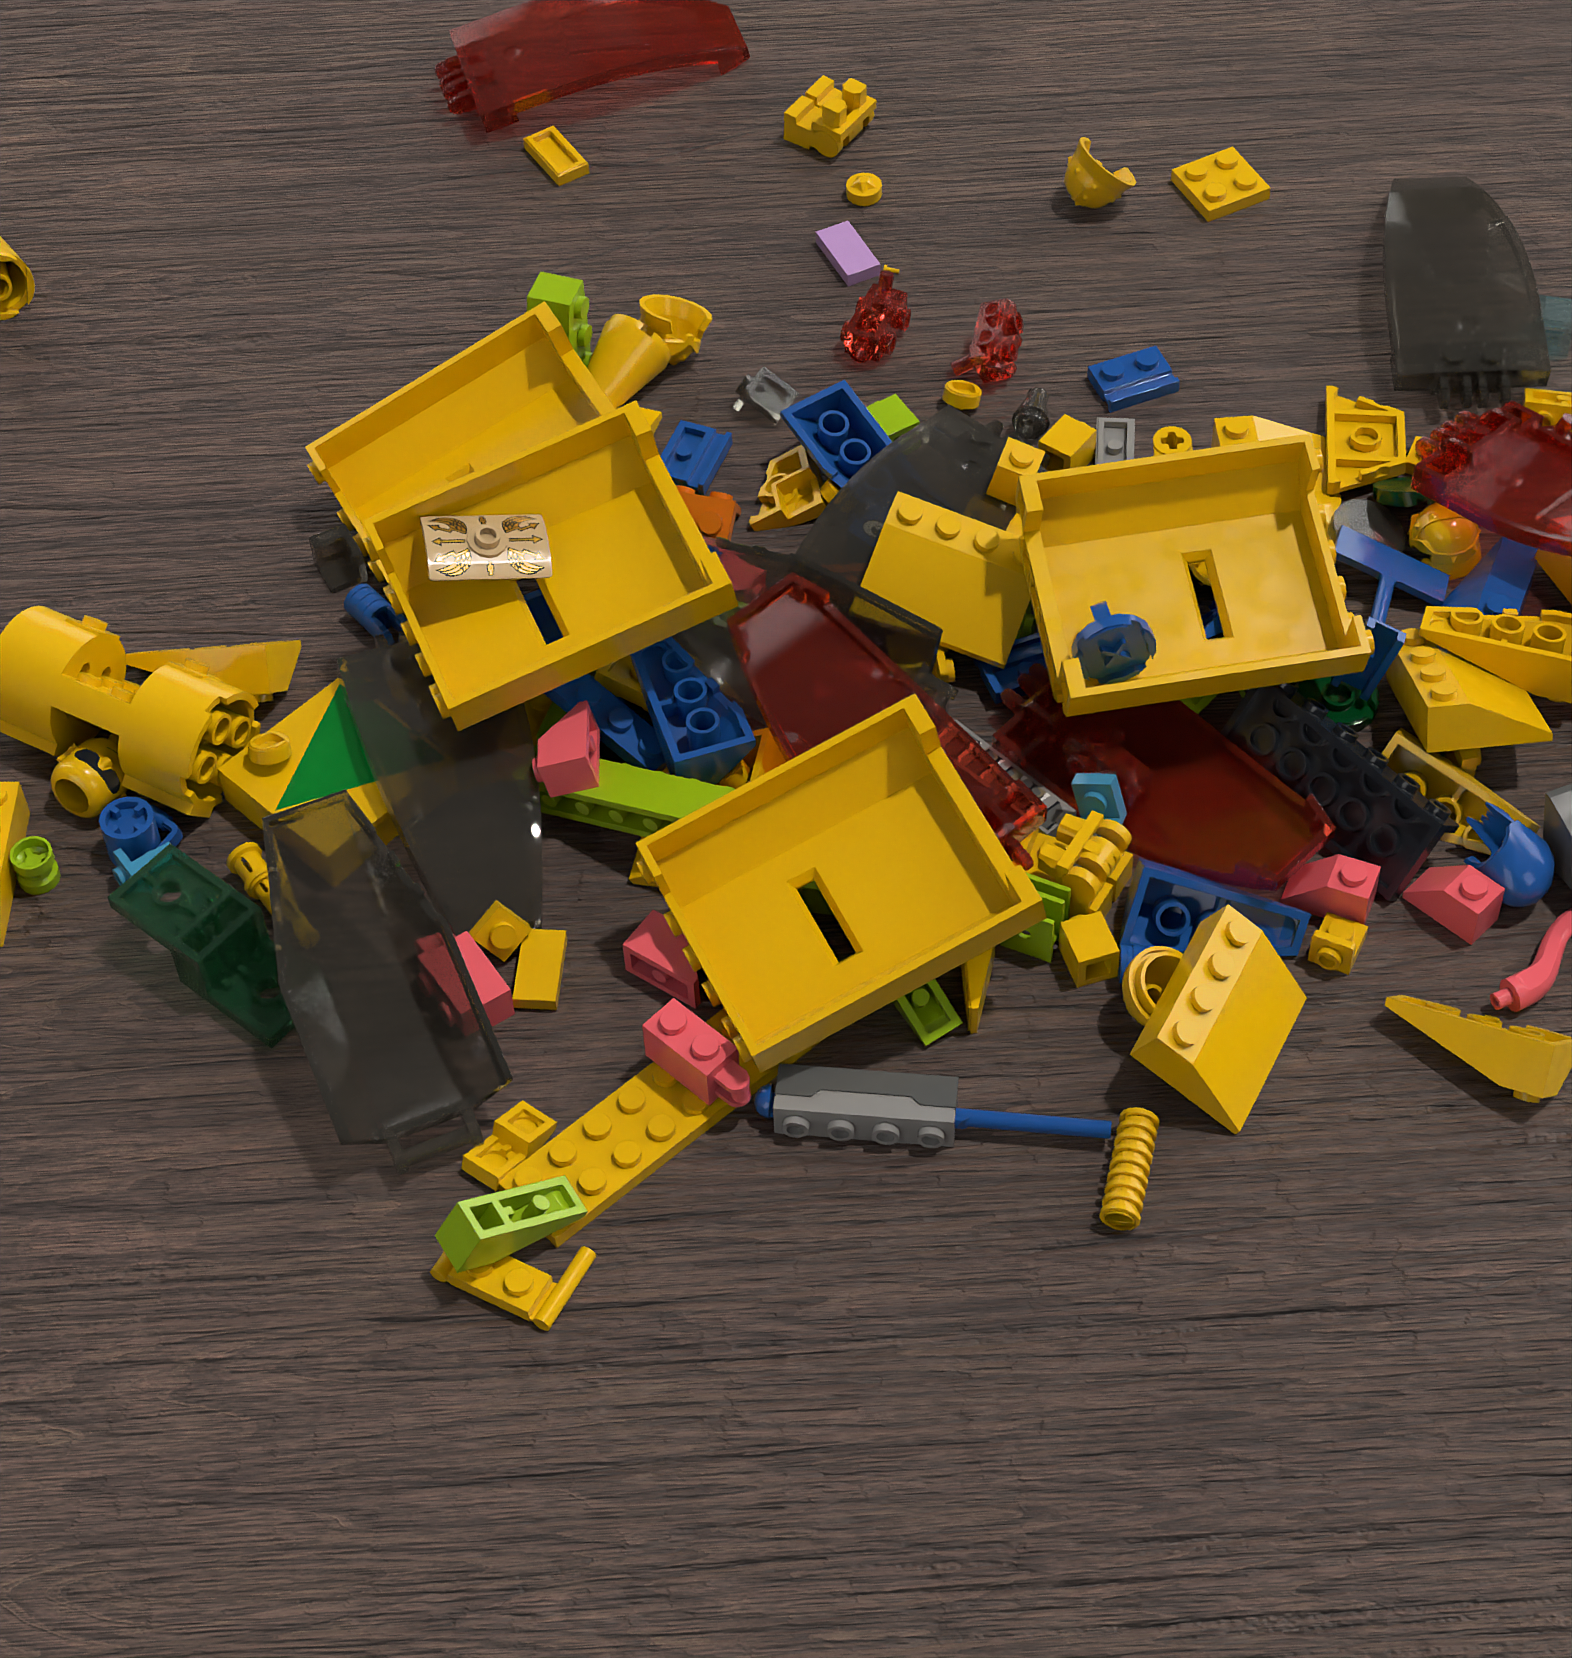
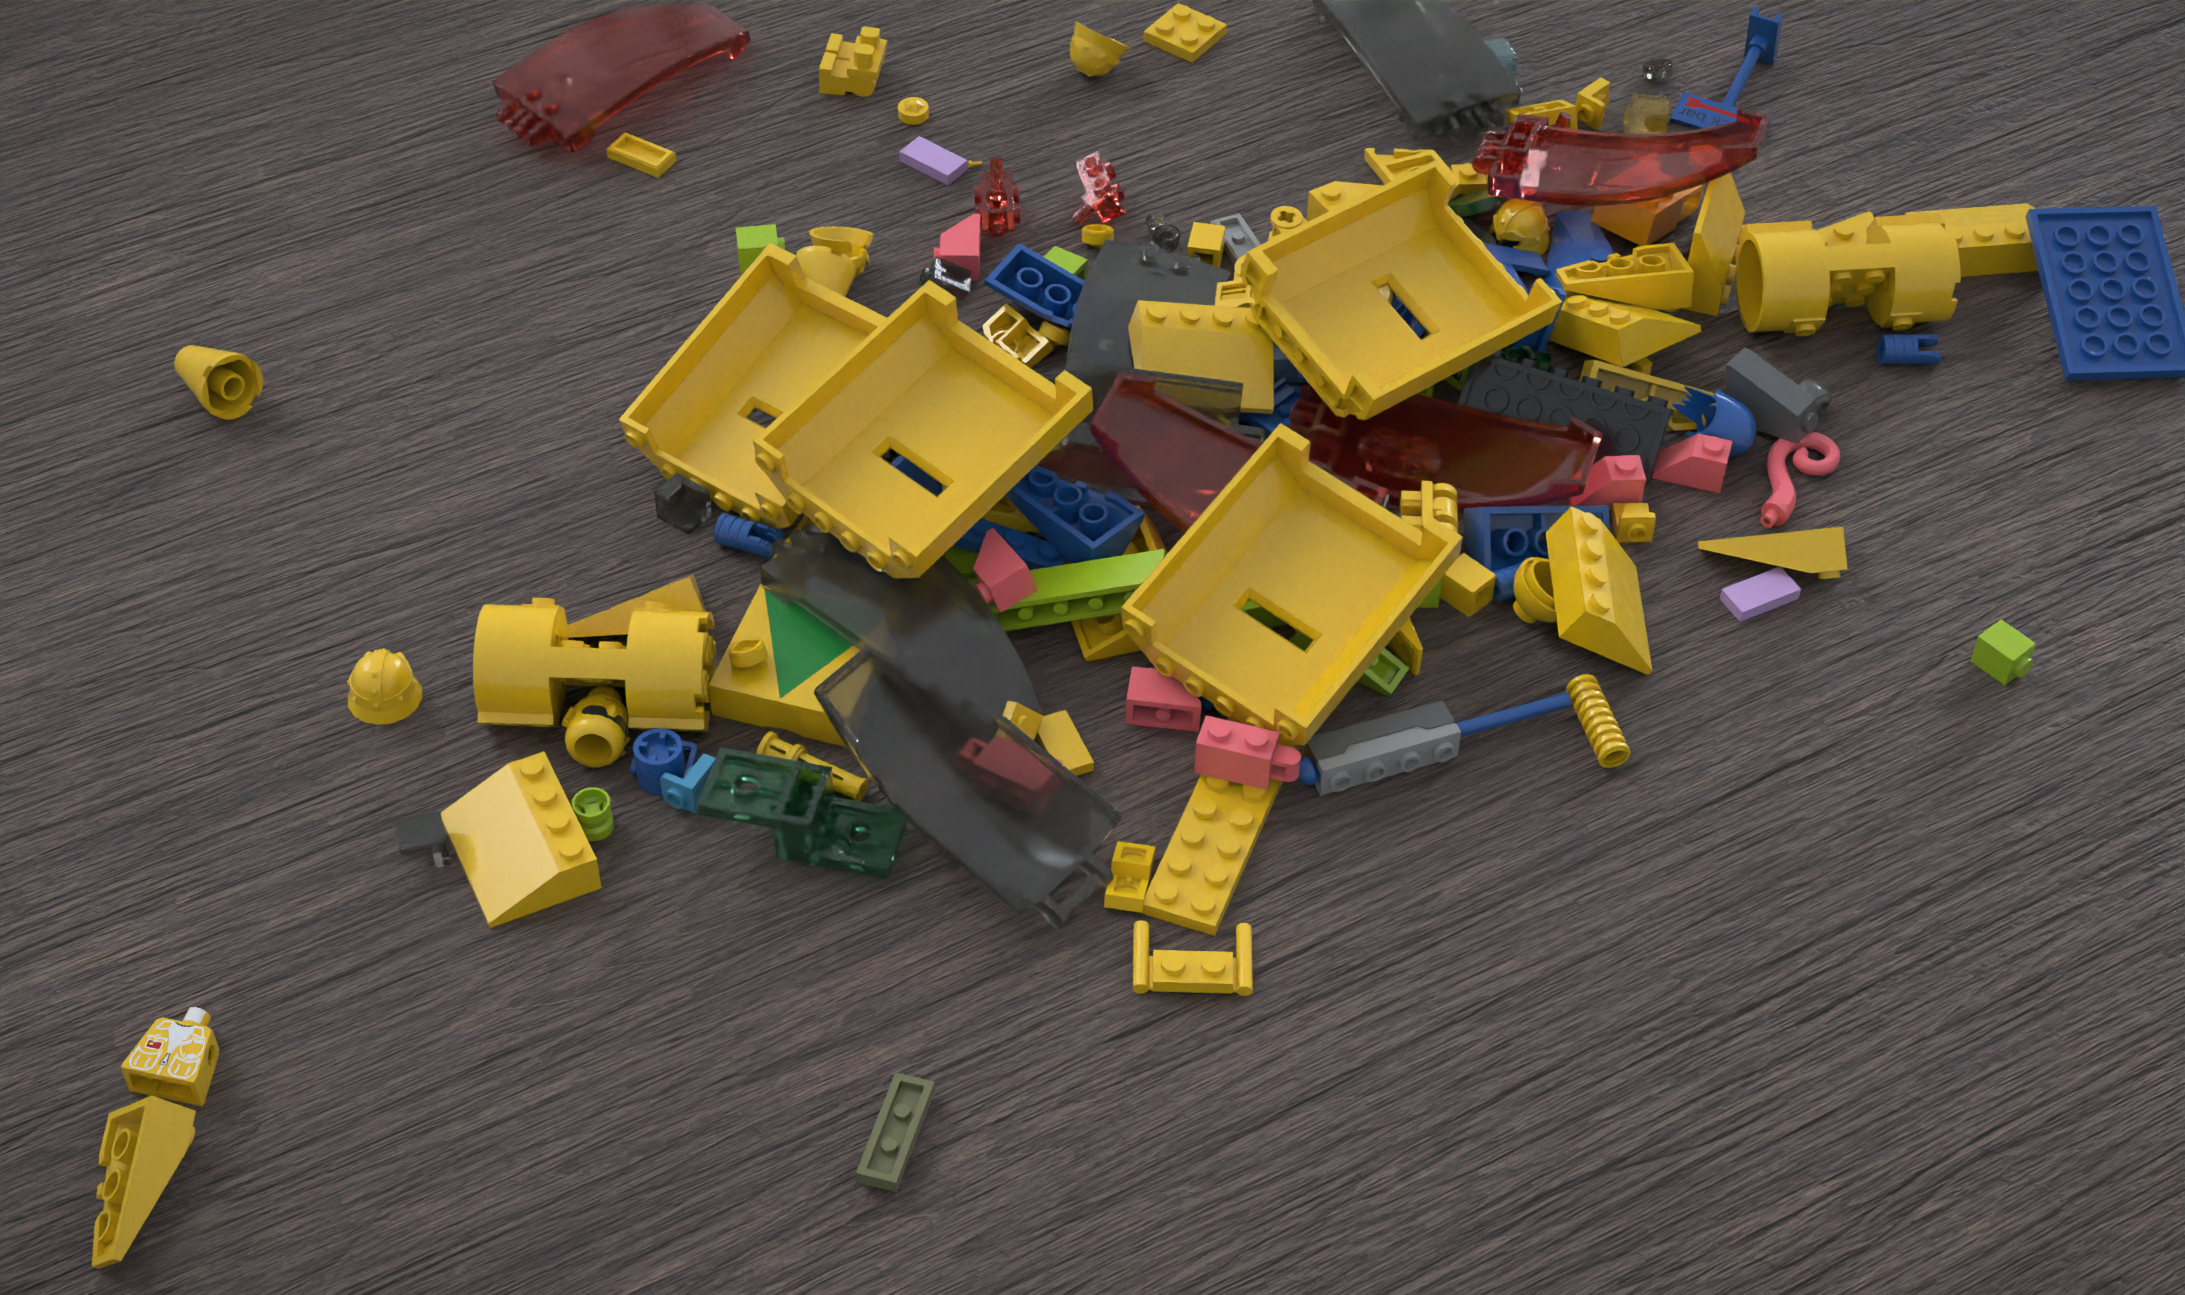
camera: 30 degrees left, 5 degrees down
(92, 1329) = (895, 1132): none -> olive plate
(486, 547) = (858, 432): tan shield -> none
(505, 1221) = (1182, 923): lime slope -> none
(807, 362) = (962, 245): none -> coral slope
(1015, 461) = (1200, 267): yellow brick -> none
(1100, 794) = (1409, 472): dark azure bracket -> none
(1113, 646) = (1372, 352): tile -> none
(1133, 379) = (1216, 187): blue plate -> none
(1431, 1087) = (1760, 594): none -> lavender tile

